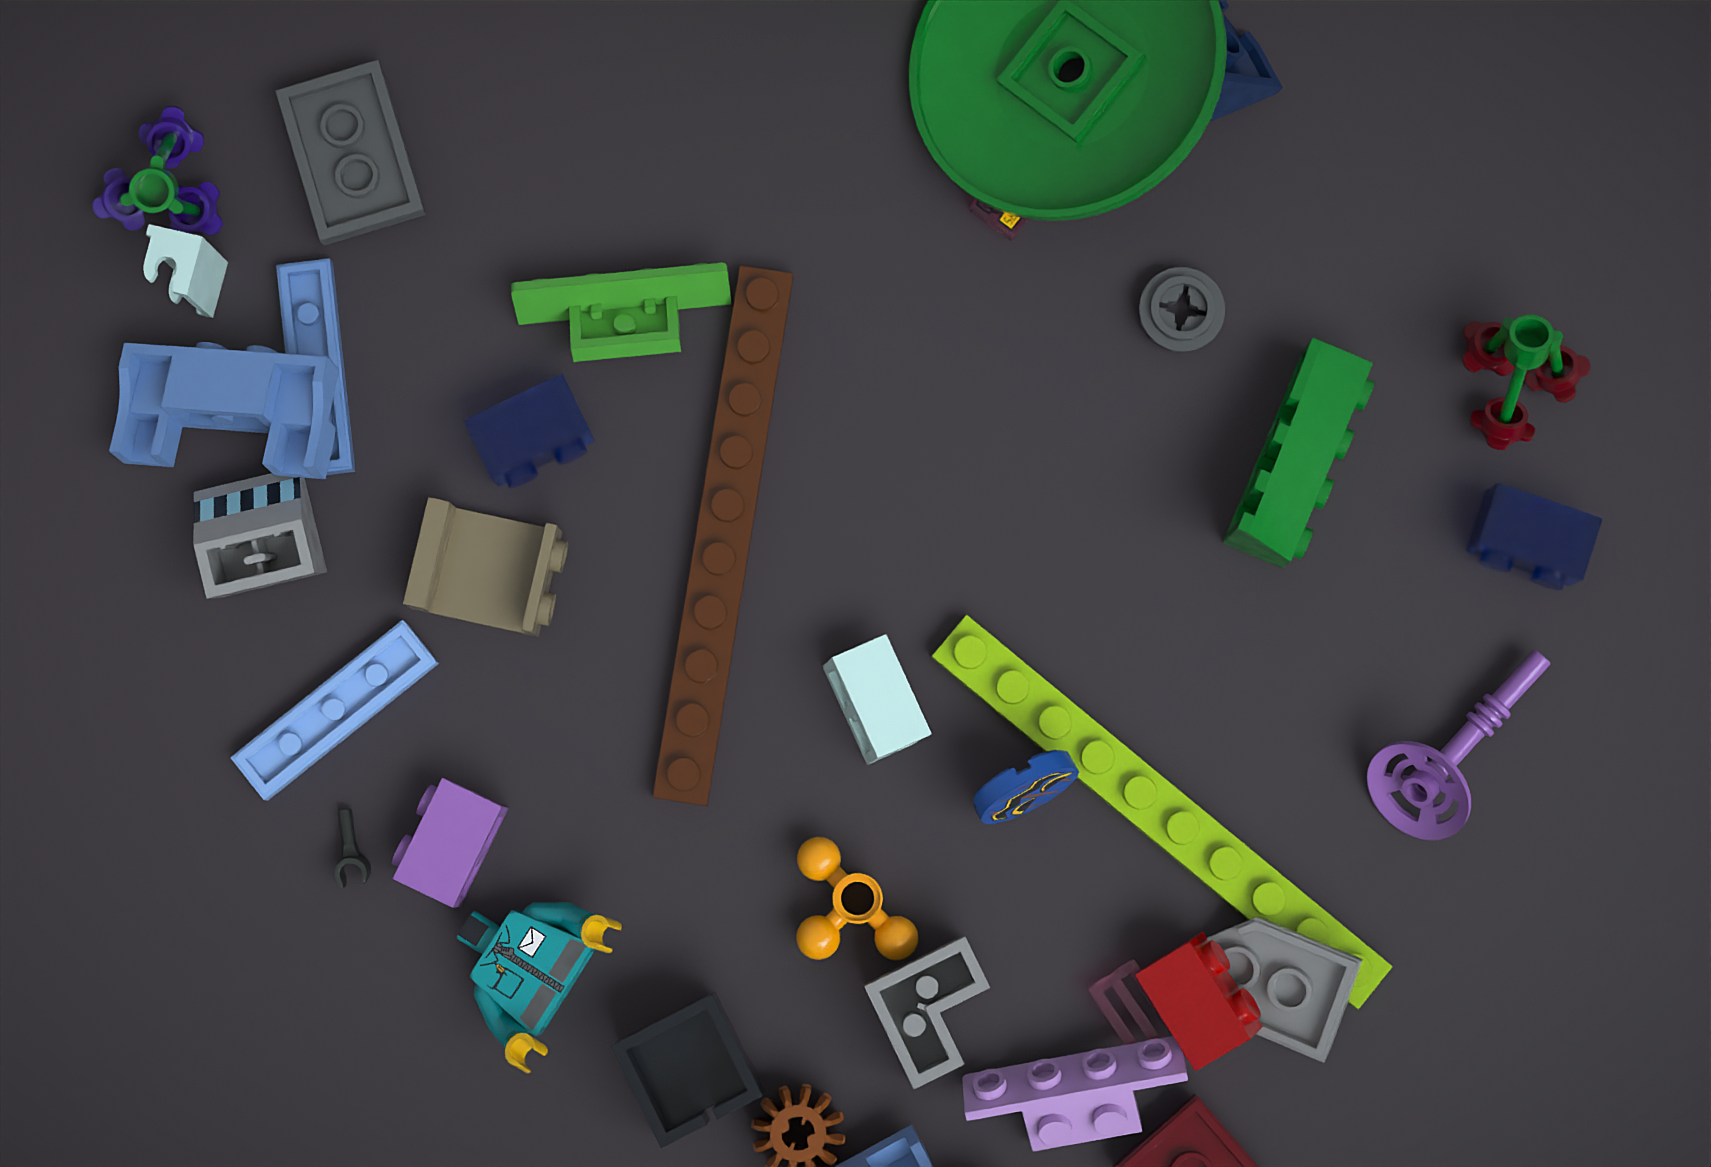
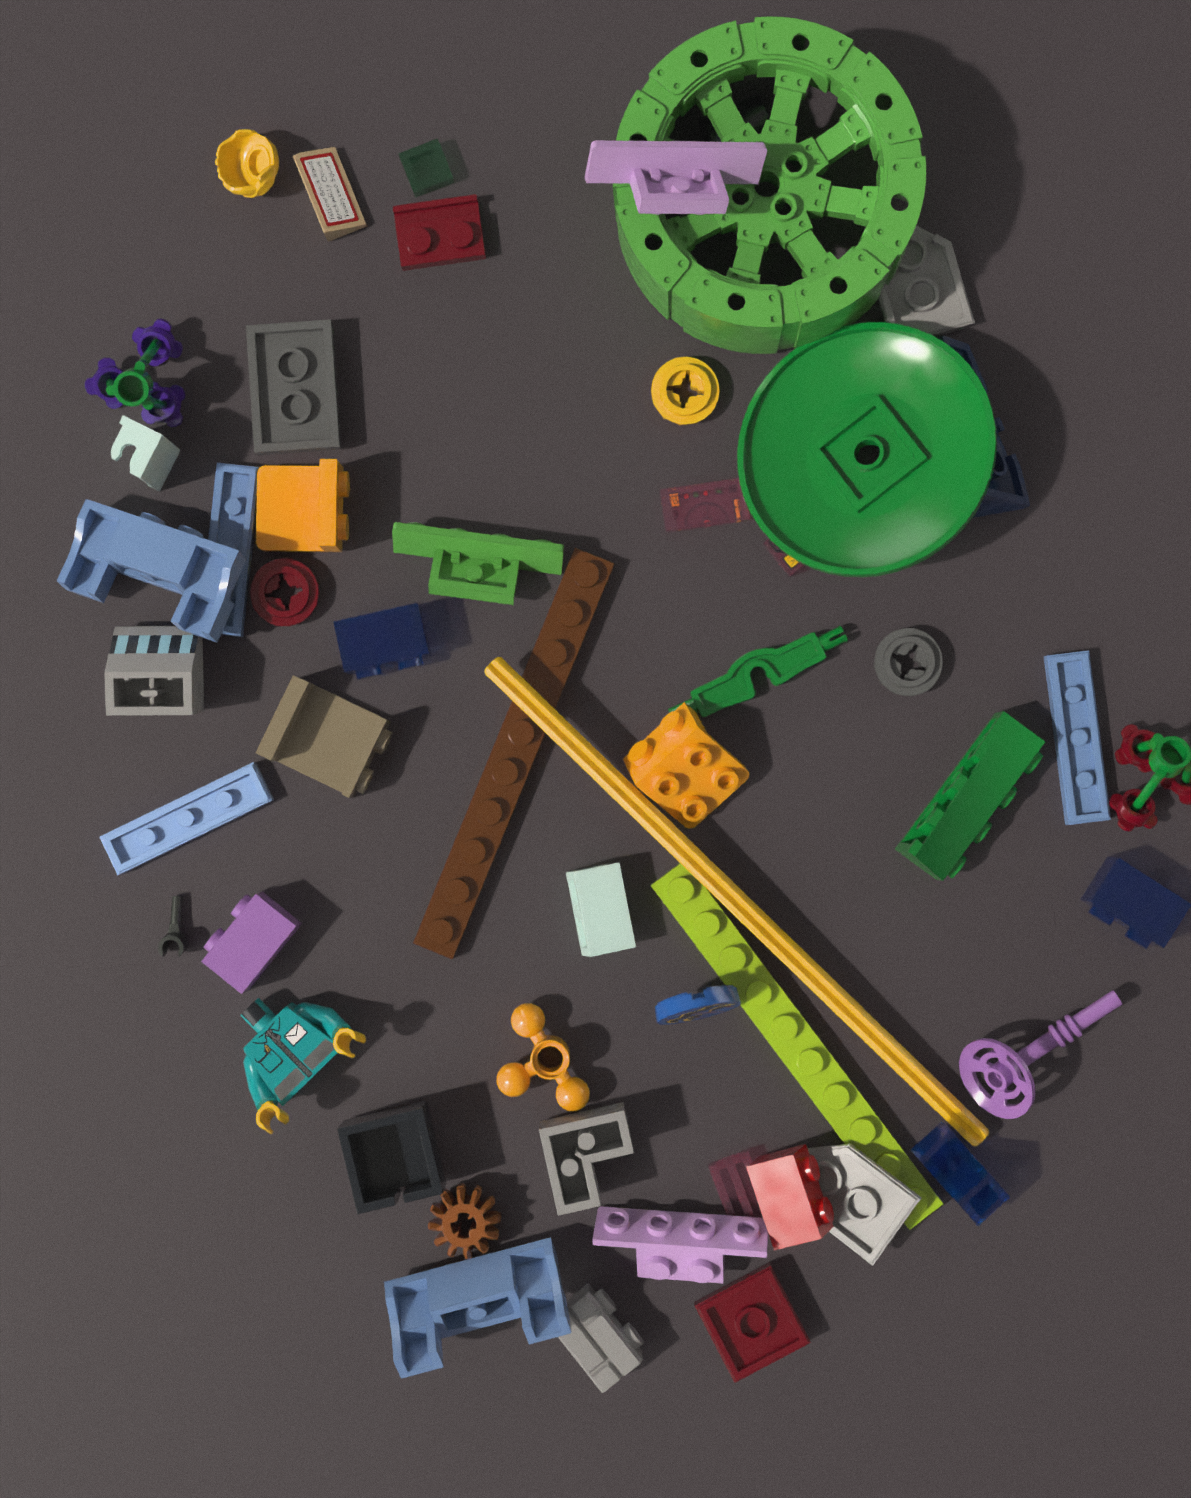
camera: 15 degrees right, 5 degrees up
(371, 396) = (268, 581): none -> dark red gear
(394, 294) = (302, 507): none -> light orange bracket
(847, 30) = (701, 380): none -> yellow gear
(886, 180) = (703, 505): none -> clear pink tile
(940, 500) = (684, 768): none -> light orange bracket
(1021, 349) = (777, 664): none -> green piece
(1045, 650) = (736, 901): none -> yellow axle
(1402, 920) = (960, 1173): none -> clear blue brick
(1411, 354) = (1077, 737): none -> medium blue tile

